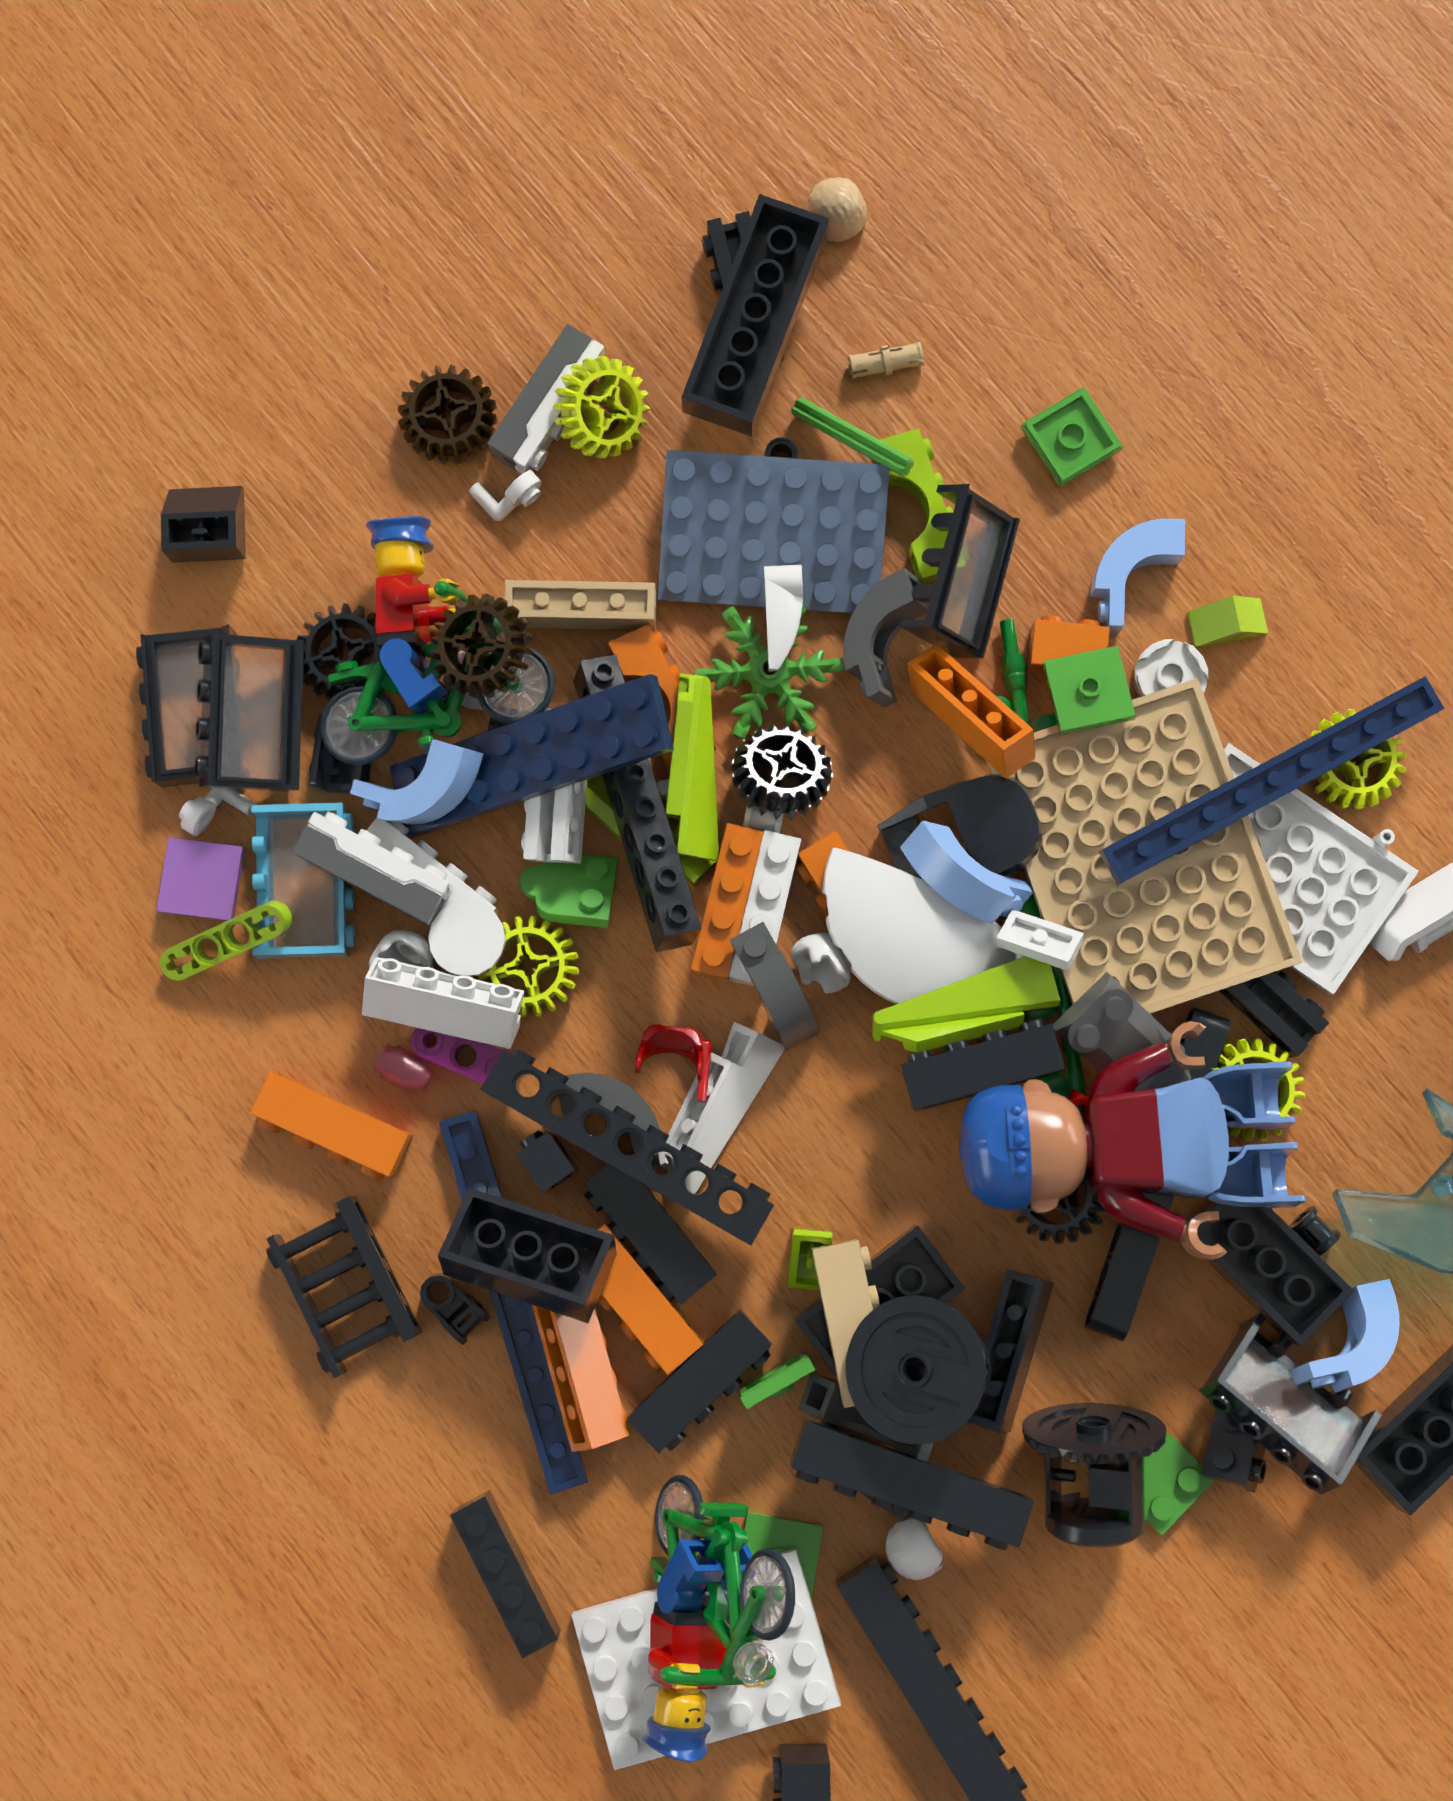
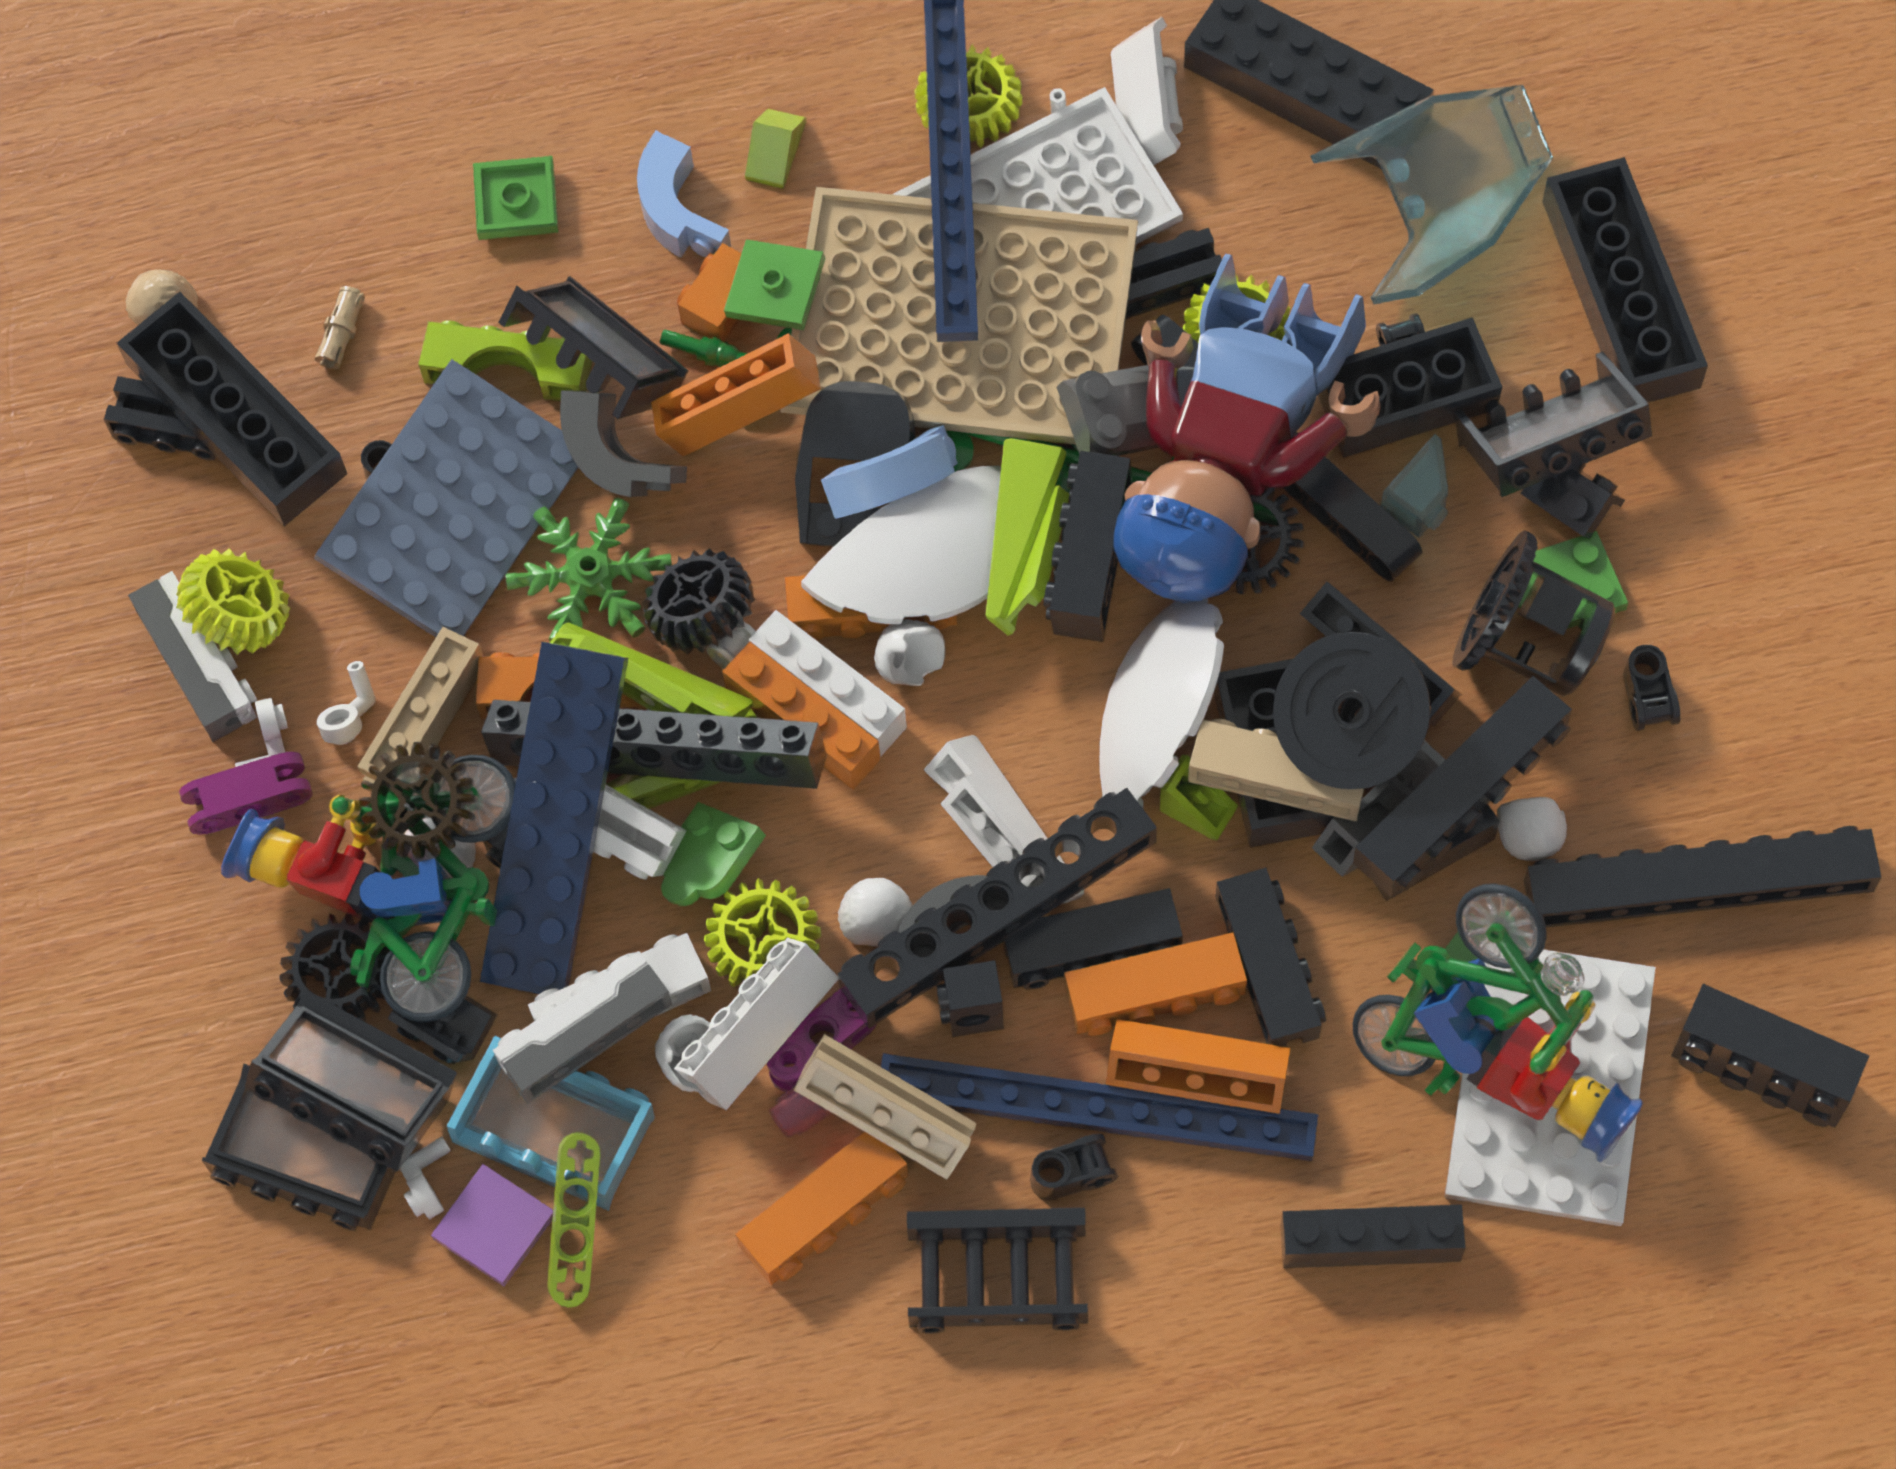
camera: 60 degrees left, 15 degrees down
(204, 524) = (121, 1048): black slope -> none
(422, 1138) = (885, 1107): none -> tan brick
(433, 416) = (121, 746): dark brown gear -> none
(434, 793) = (539, 935): light blue arch -> none
(454, 504) = (261, 785): none -> magenta piece
(467, 938) = (703, 970): white tile -> none
(528, 1255) = (1058, 1045): black brick -> none
(549, 544) = (342, 722): none -> white plate
(591, 1044) = (872, 910): none -> white hair
(680, 1041) = (920, 823): red helmet -> none
(775, 986) = (913, 691): dark grey arch -> none
(777, 1380) = (1303, 877): bright green plate -> none
(783, 610) = (530, 521): white piece -> none
(852, 437) = (400, 386): bright green axle -> none
(873, 1190) = (1159, 697): none -> white brick
(1040, 939) = (993, 434): white plate -> none
(1087, 1591) = (1650, 696): none -> black piece
(1168, 665) = (787, 214): white tile -> none
(1177, 1315) = (1420, 490): none -> clear light blue slope
(1370, 1341) = (1526, 328): light blue arch -> none

